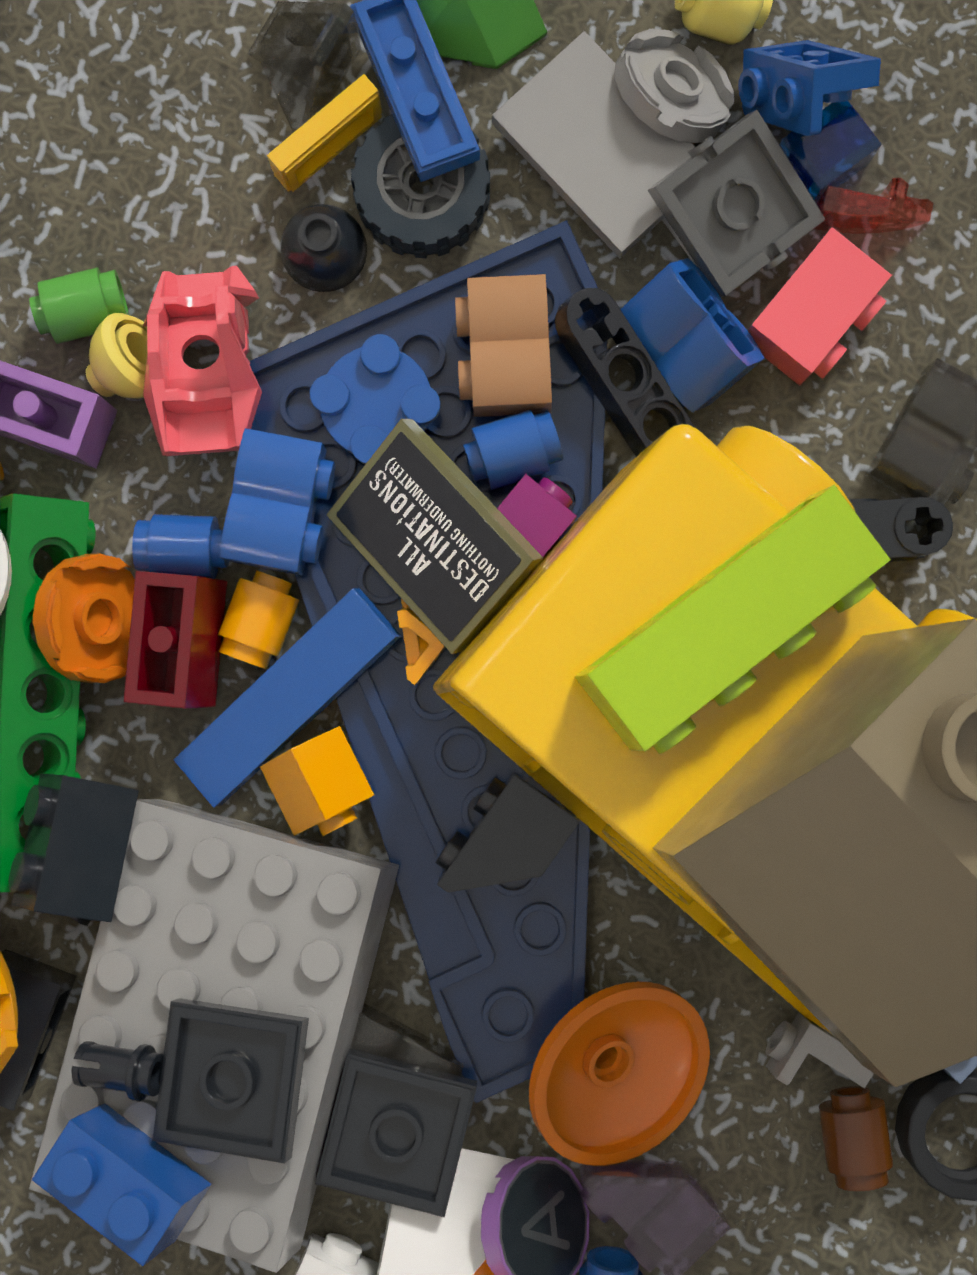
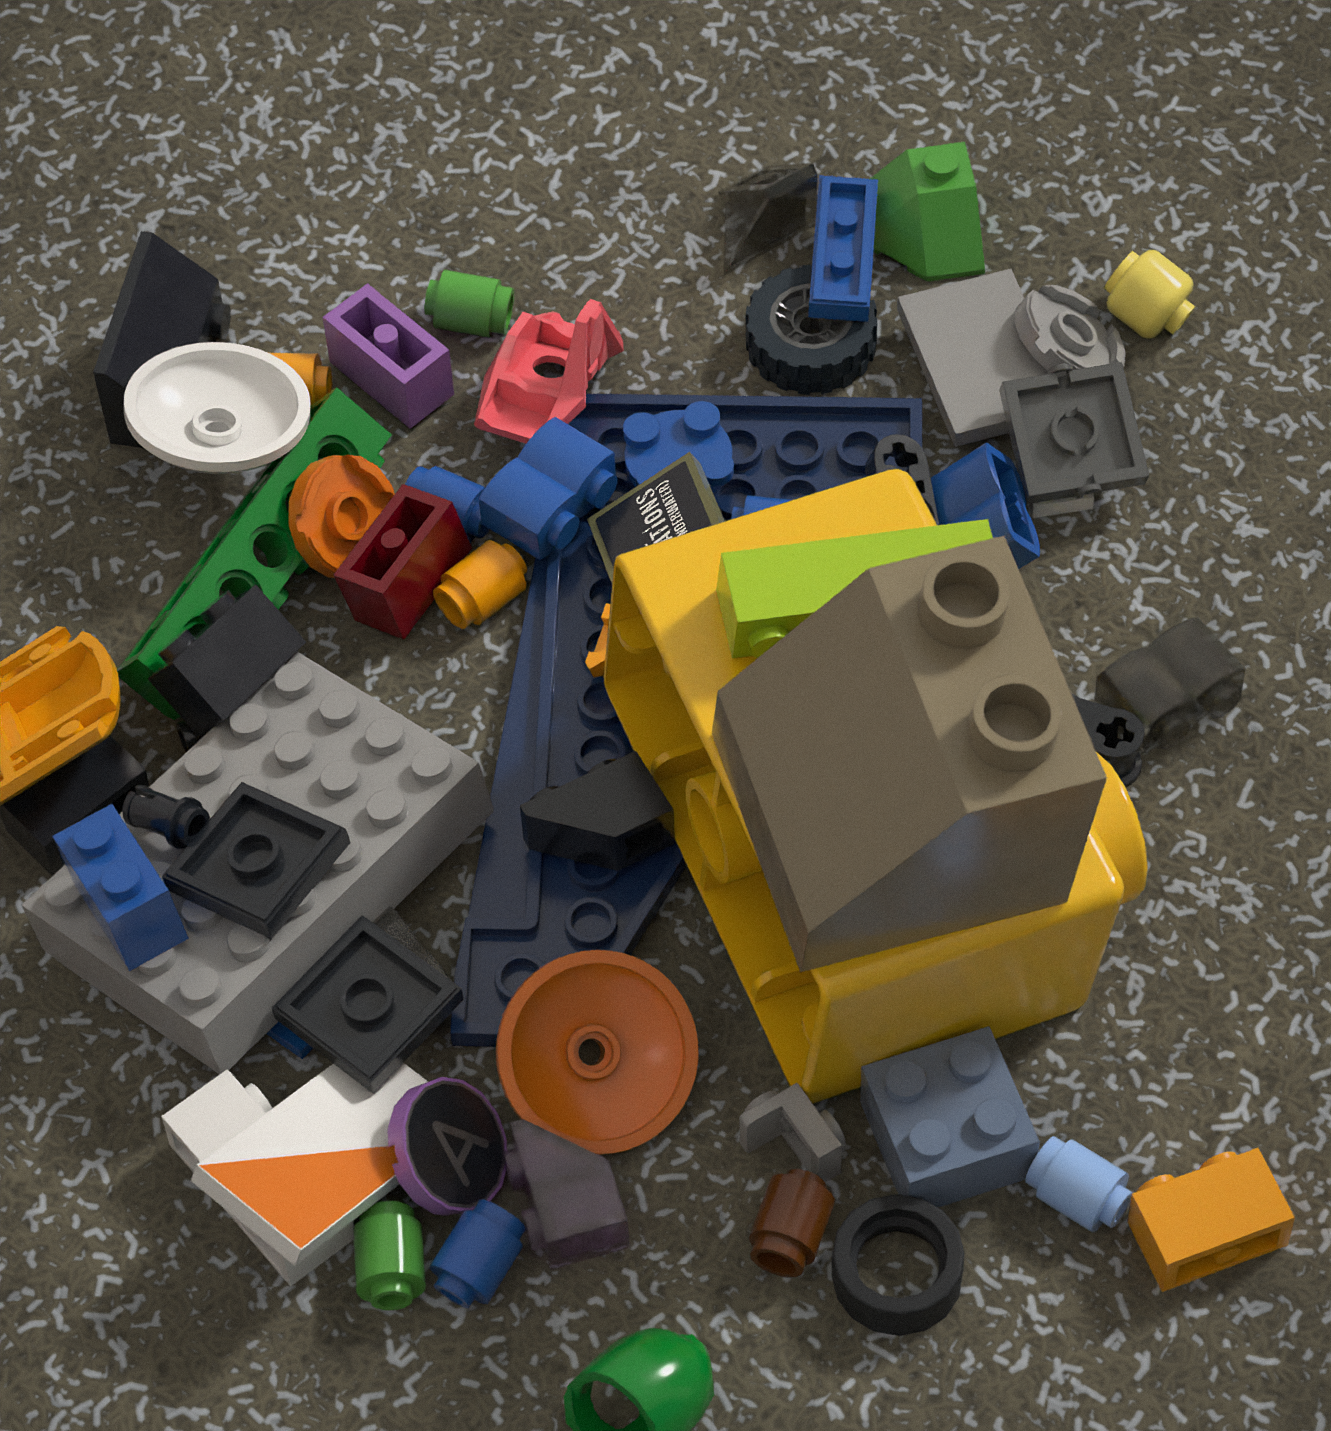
camera: 30 degrees right, 30 degrees down
(118, 357) = (476, 346): light yellow brick -> none
(287, 697) = (475, 643): blue tile -> none
(318, 783) = (463, 710): light orange brick -> none
(323, 248) = (701, 345): black brick -> none
(326, 134) = (745, 262): yellow tile -> none
(507, 345) = (816, 446): medium nougat brick -> none
(795, 79) = (1178, 361): blue bracket -> none
(817, 306) = (1111, 547): coral brick -> none
(834, 154) = (1182, 436): clear blue brick -> none
(868, 213) = (1200, 498): clear red slope -> none

